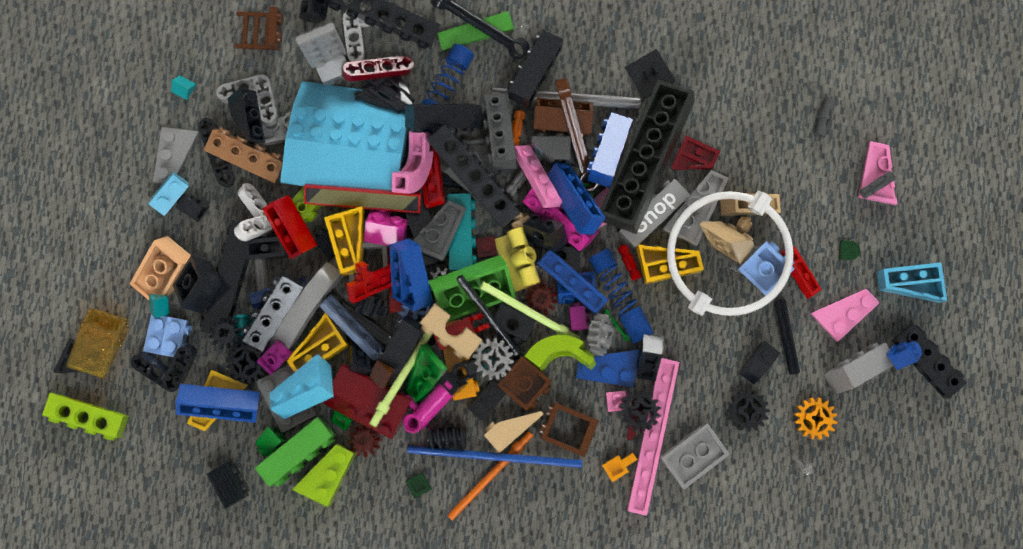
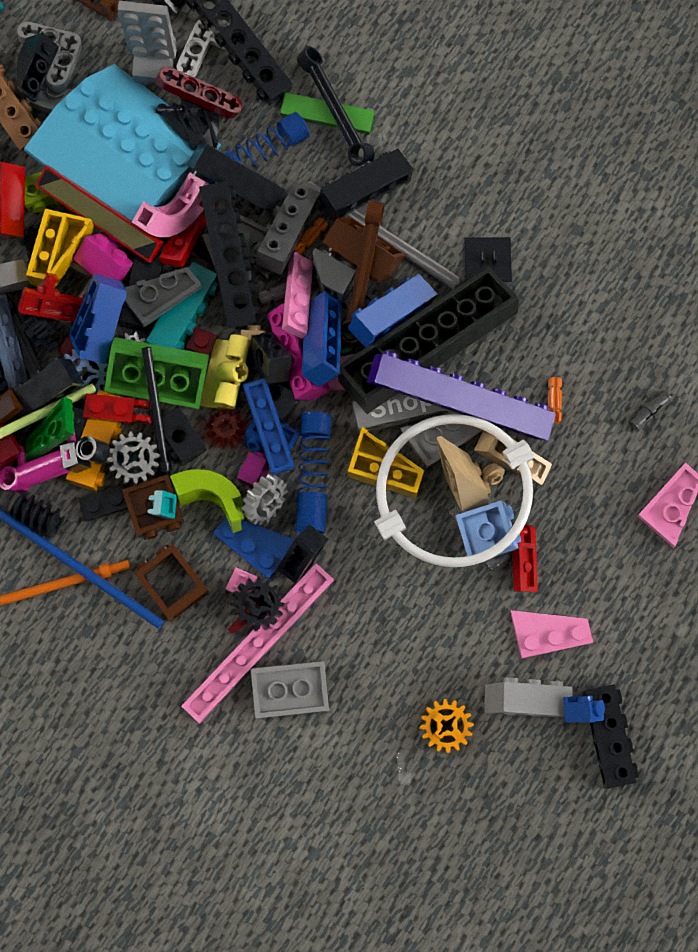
camera: 25 degrees right, 5 degrees down
(463, 344) = (93, 381): tan arch -> none
(506, 431) = (102, 546): tan slope -> none
(534, 379) = (164, 504): none -> teal tile
(560, 329) = (226, 471): yellowish green bar -> none
(616, 466) = (198, 653): light orange plate -> none
(625, 336) = (289, 482): green hinge -> none
(629, 262) = (345, 444): red axle -> none
(691, 185) = (461, 397): none -> brick
(694, 156) = (483, 368): dark red wing -> none
(748, 402) = (387, 680): black gear -> none
(755, 148) = (555, 397): none -> orange axle
(759, 362) = (420, 630): black slope -> none
(787, 336) = (469, 621): black axle -> none
(848, 250) = (593, 567): dark green tile -> none
(877, 184) = (664, 512): dark grey axle -> none
(914, 281) = (643, 639): medium azure wedge -> none

